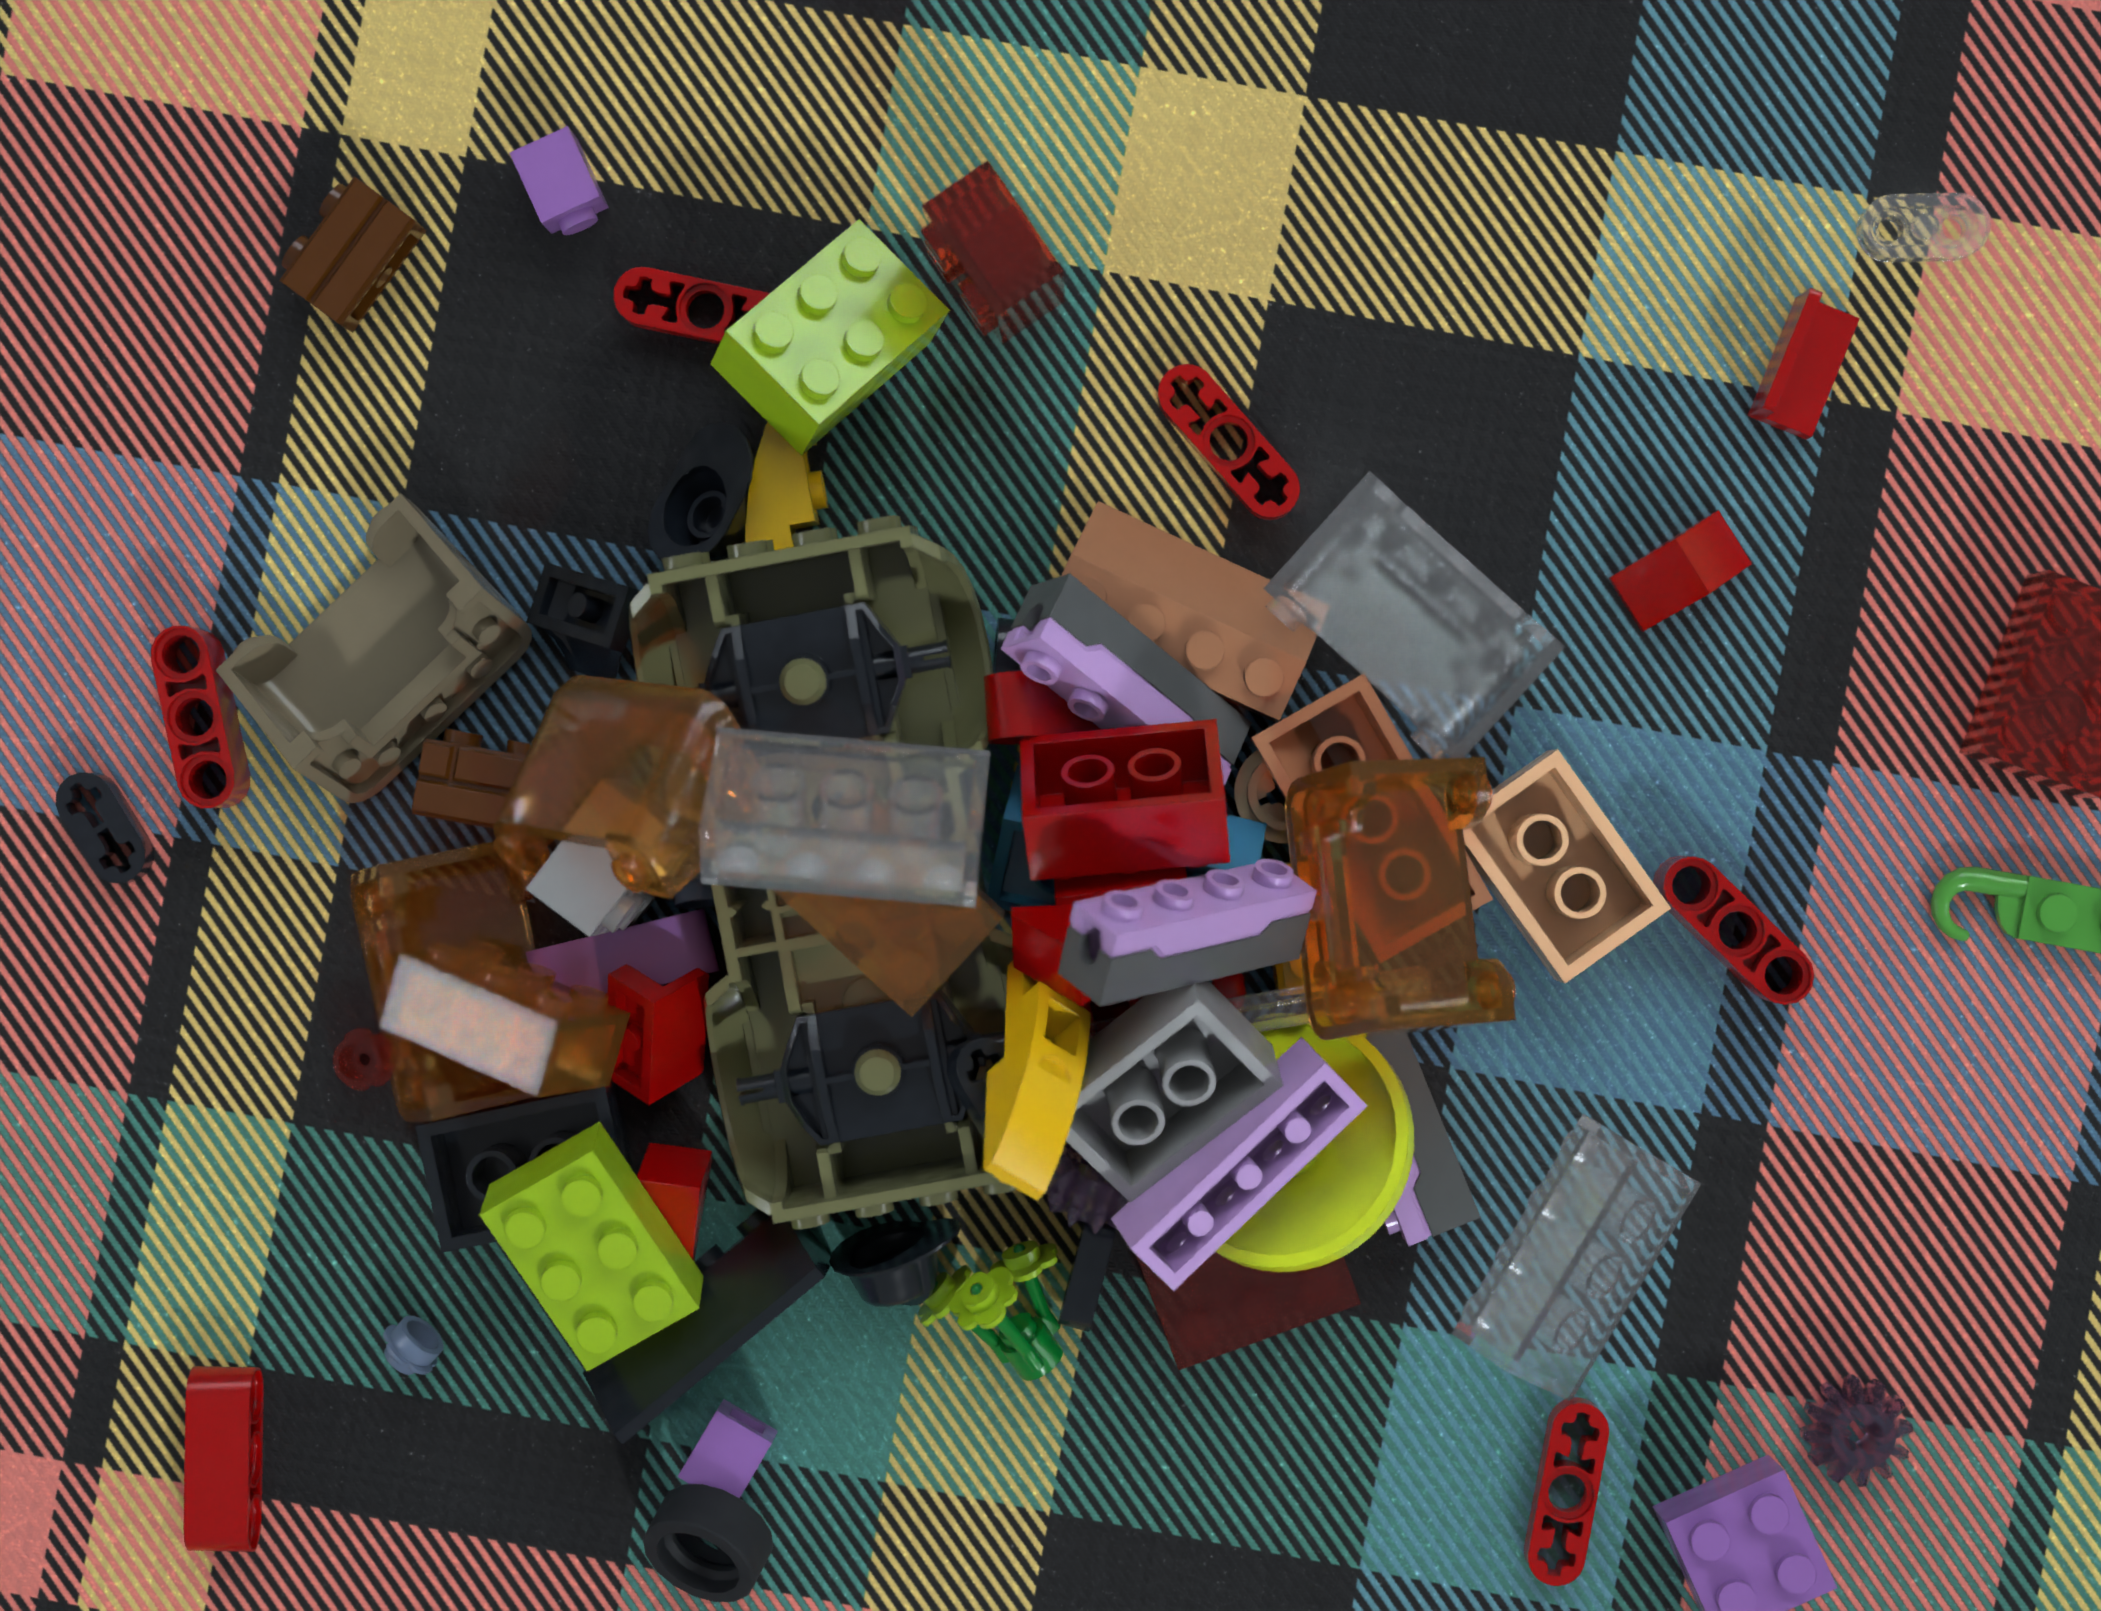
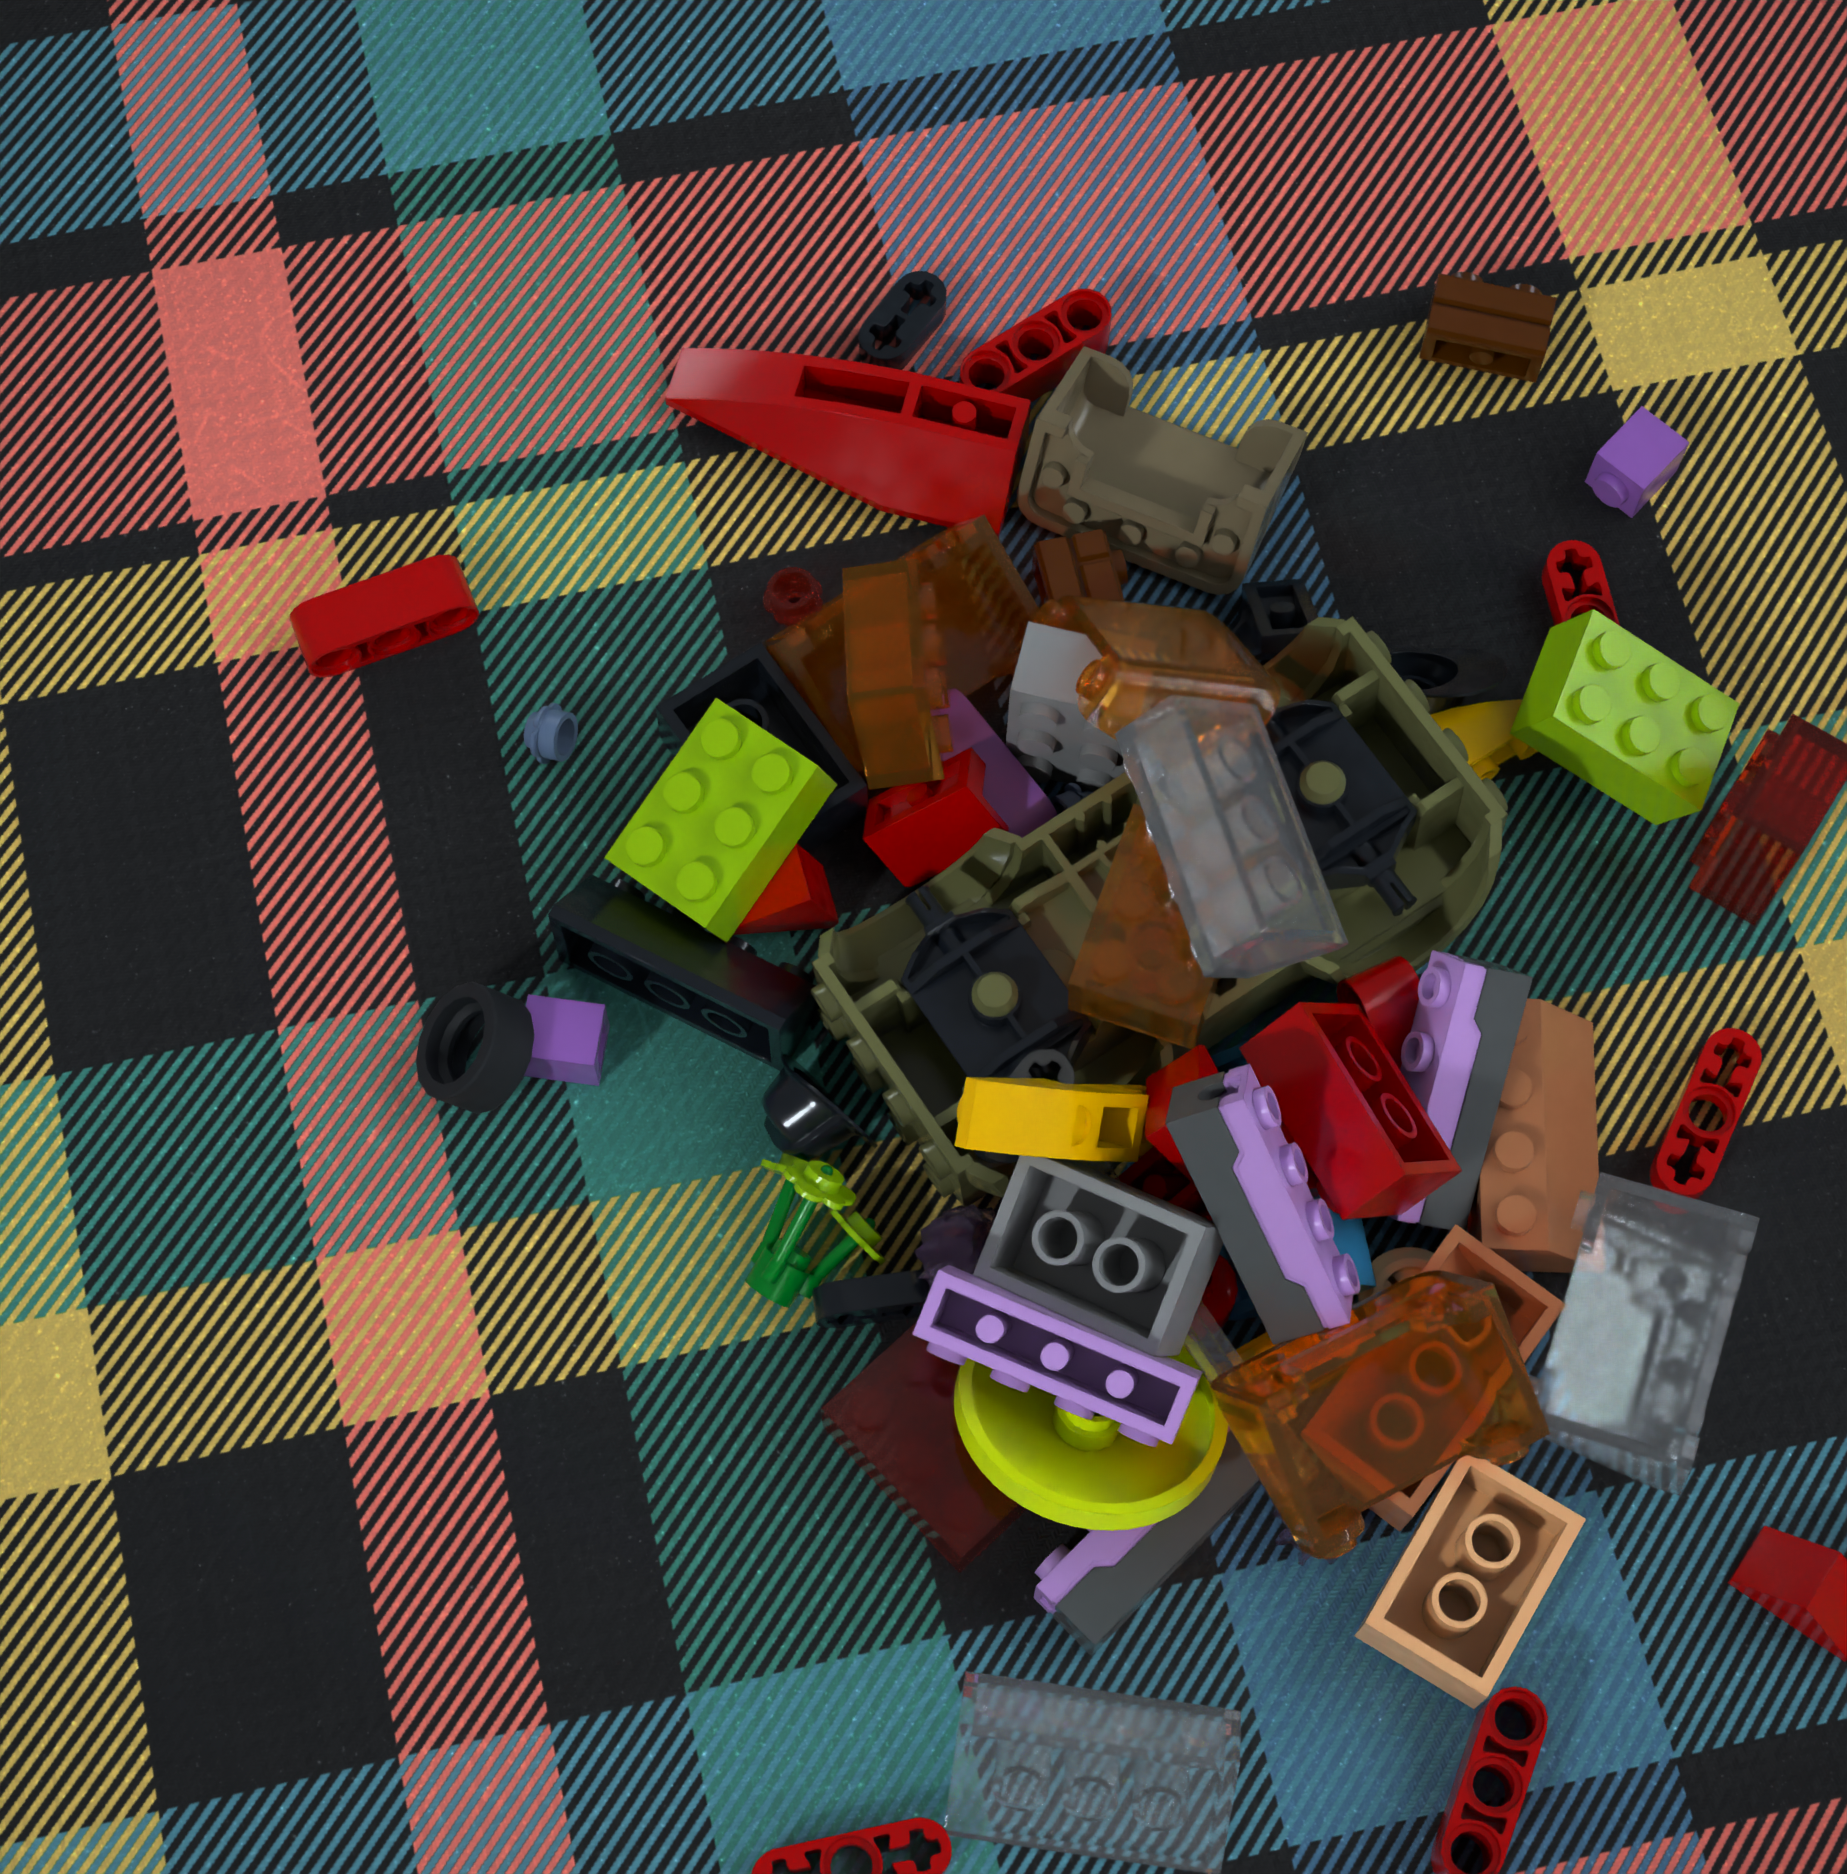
camera: 65 degrees right, 20 degrees down
(216, 921) = (864, 428): none -> red wedge

